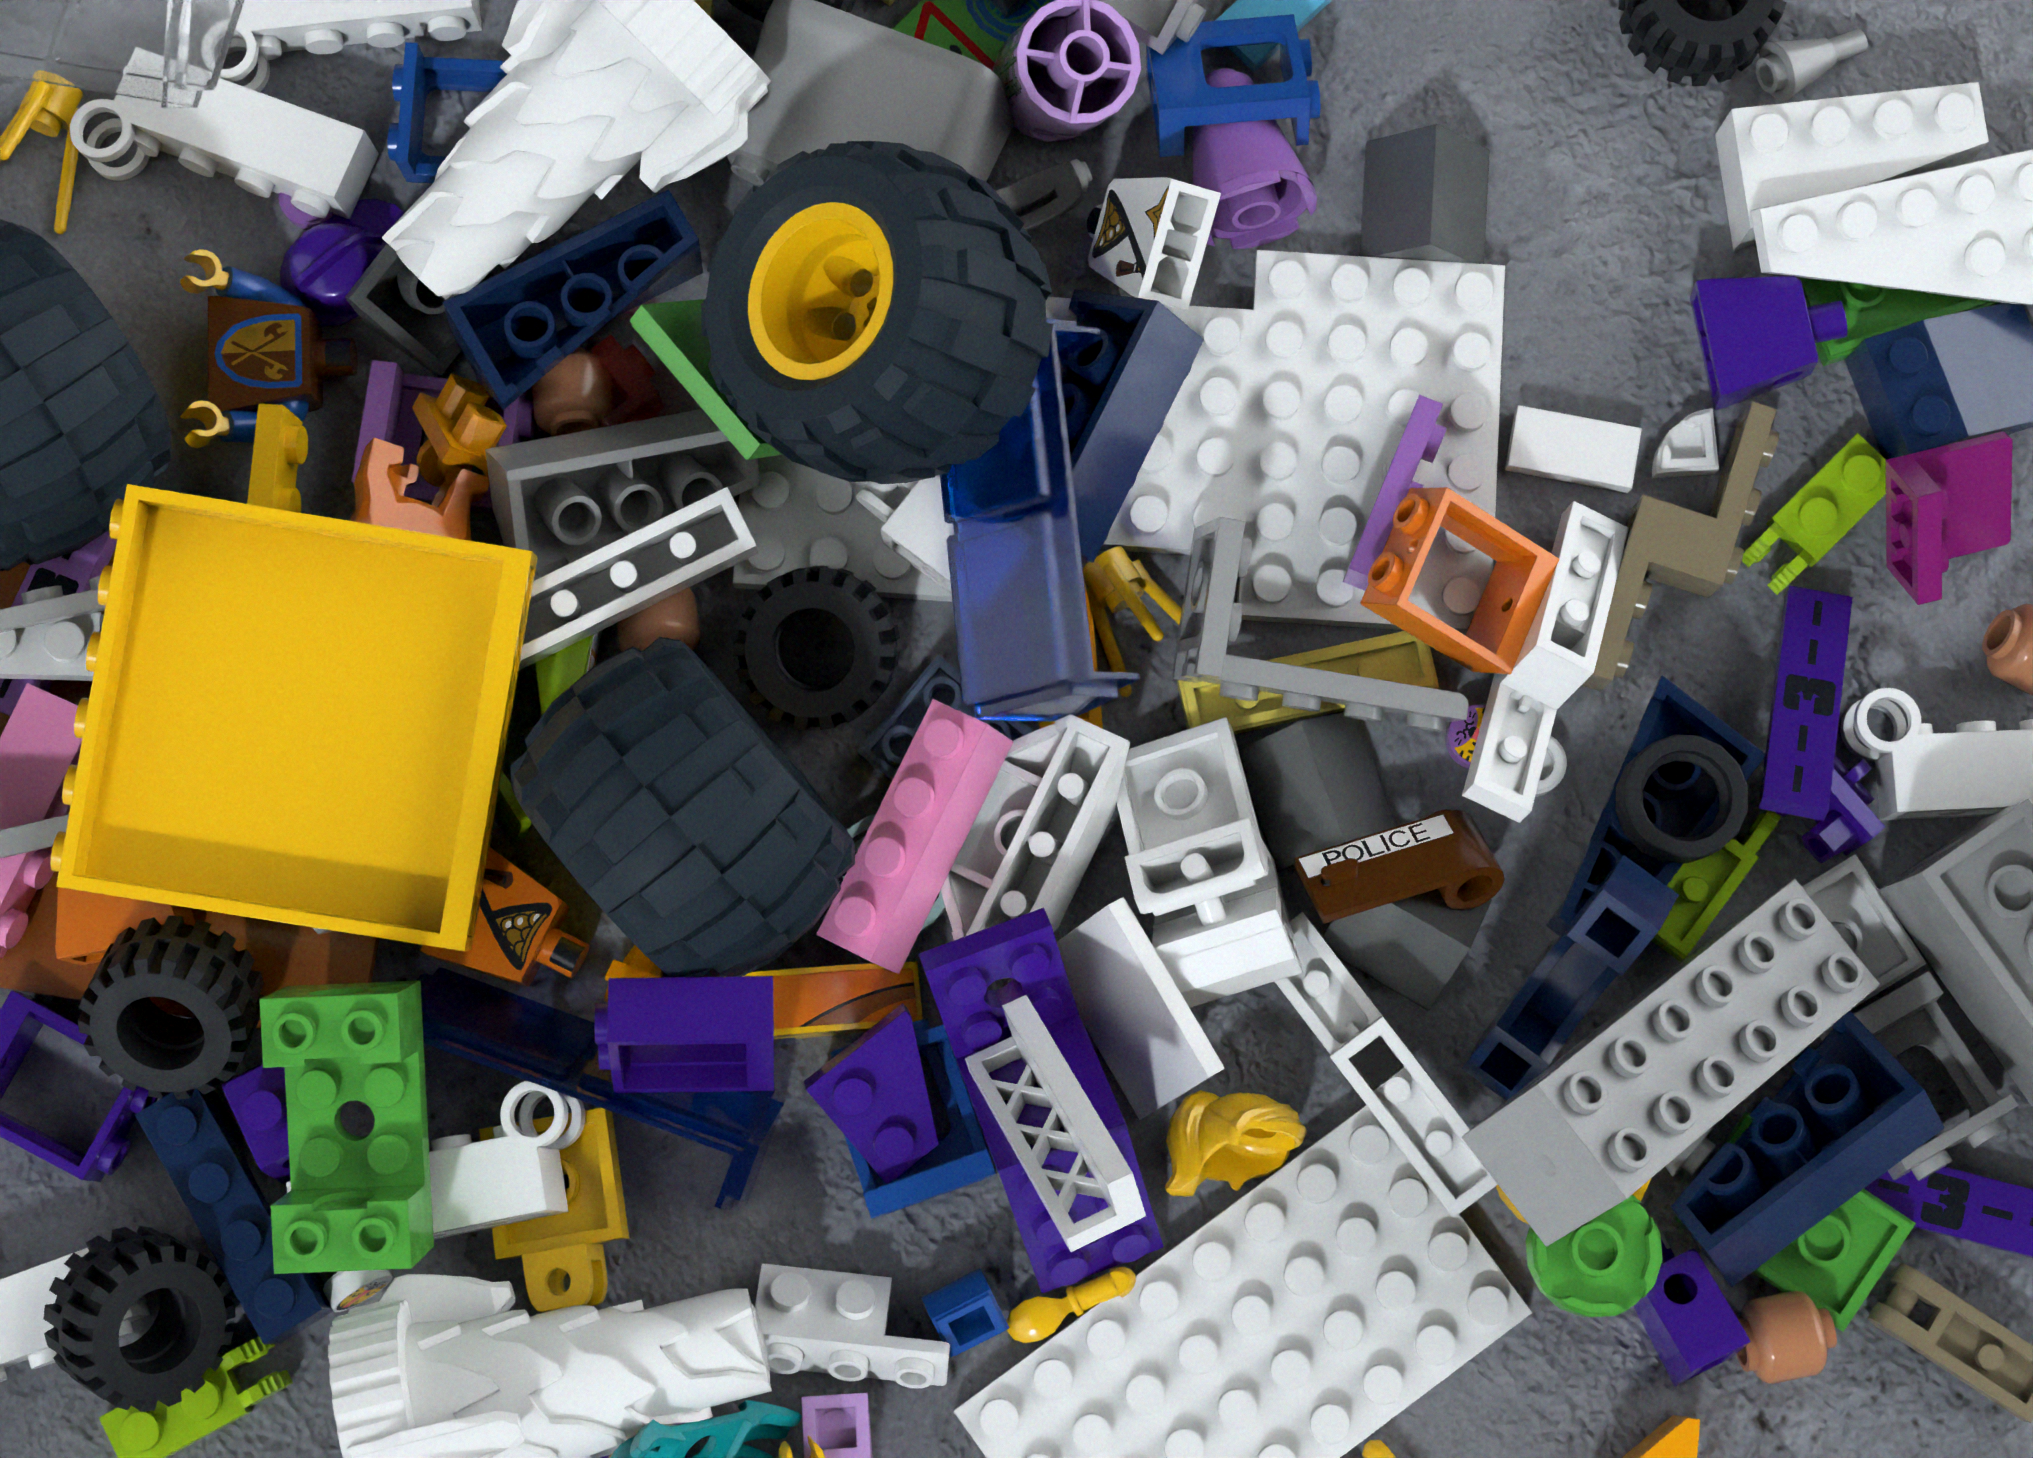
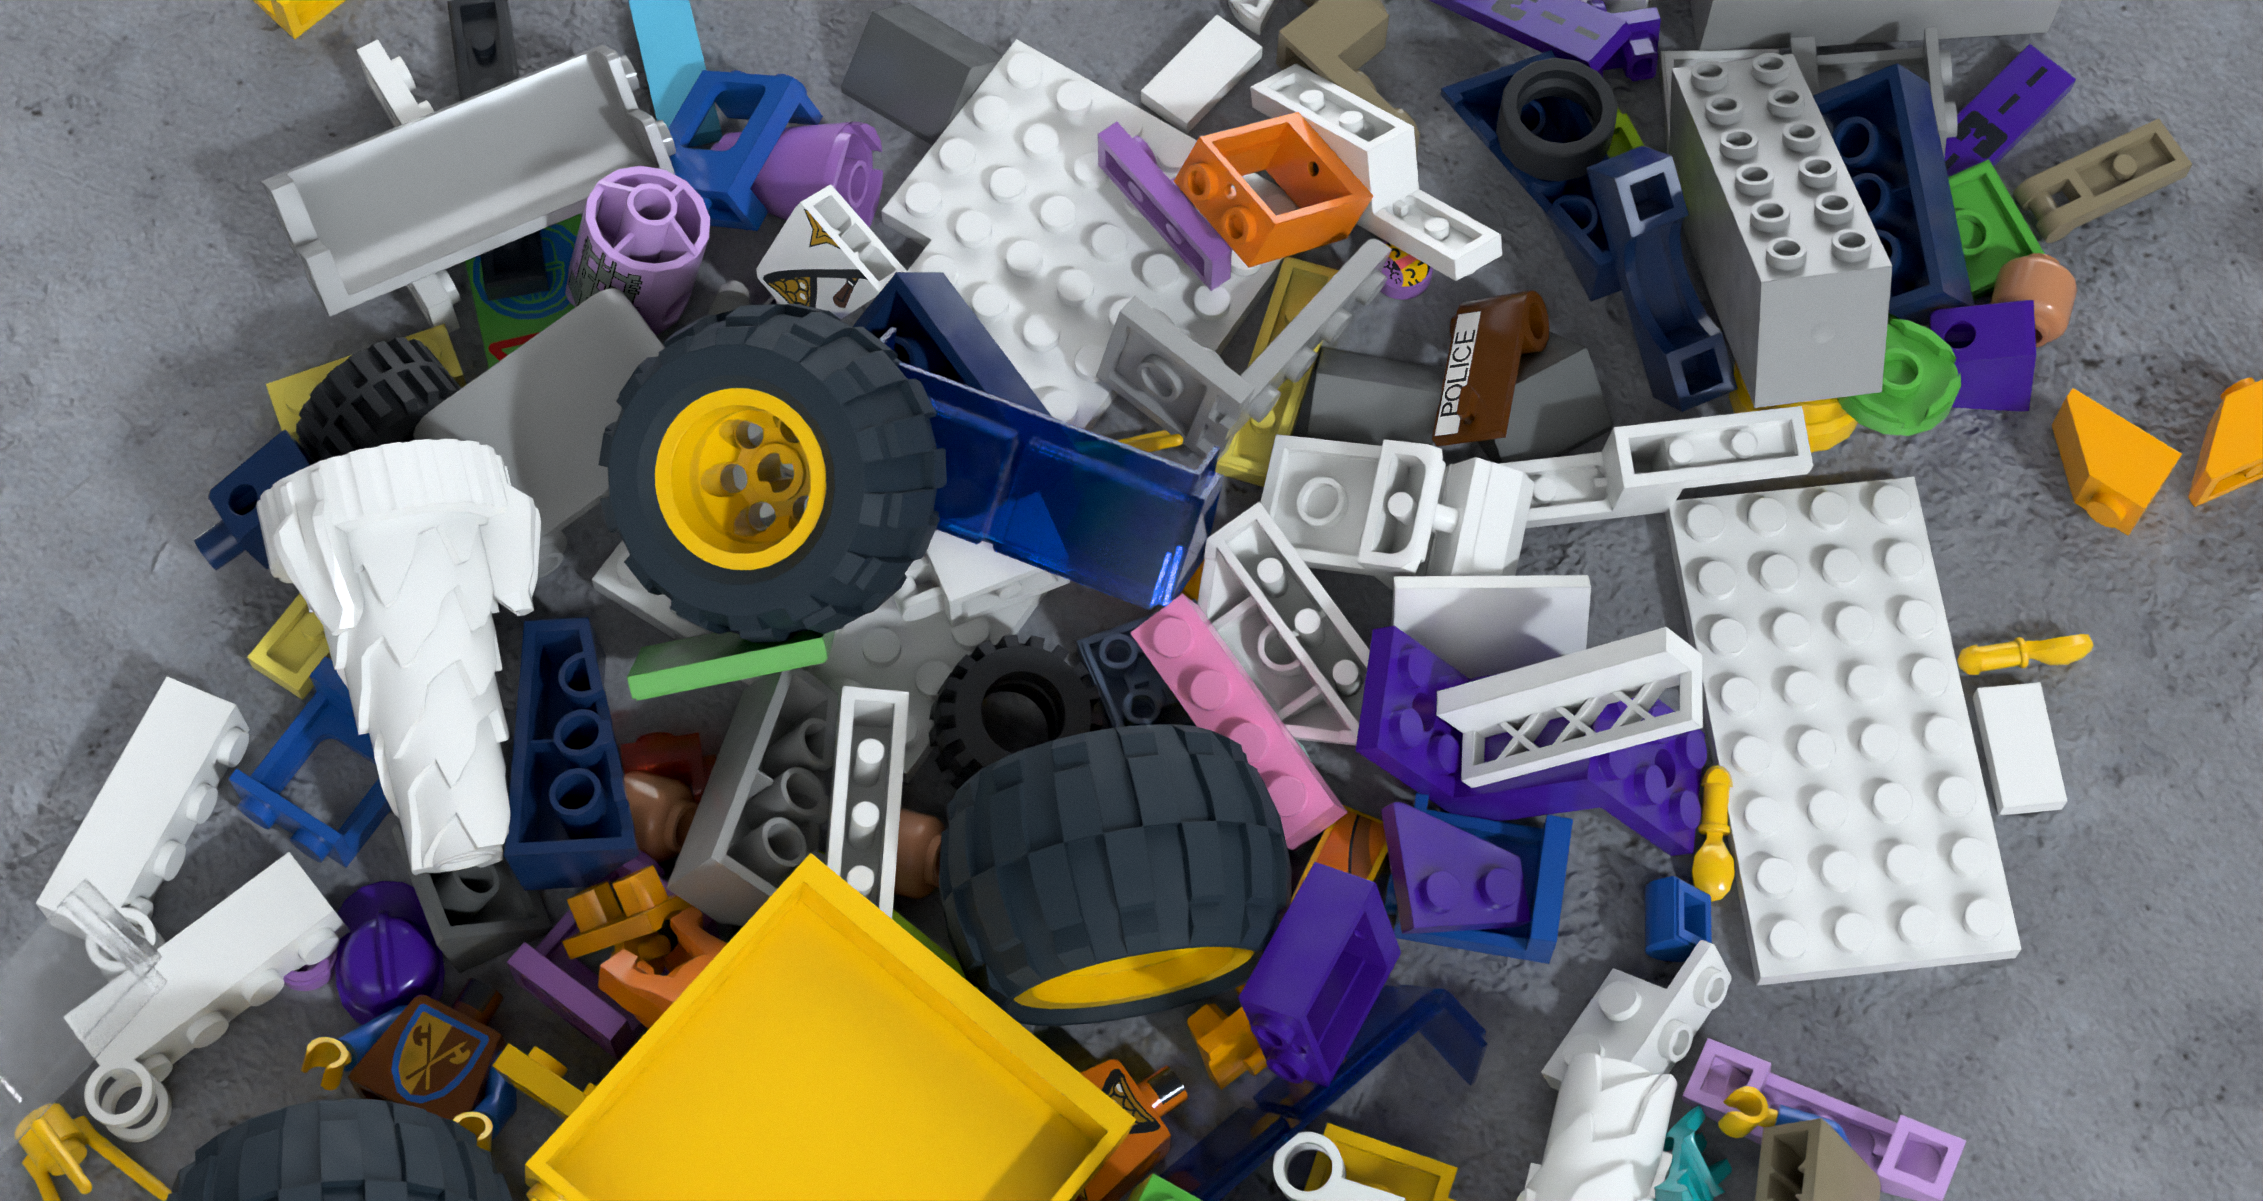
camera: 60 degrees left, 15 degrees down
(1229, 1139) = (1641, 602): yellow hair -> none

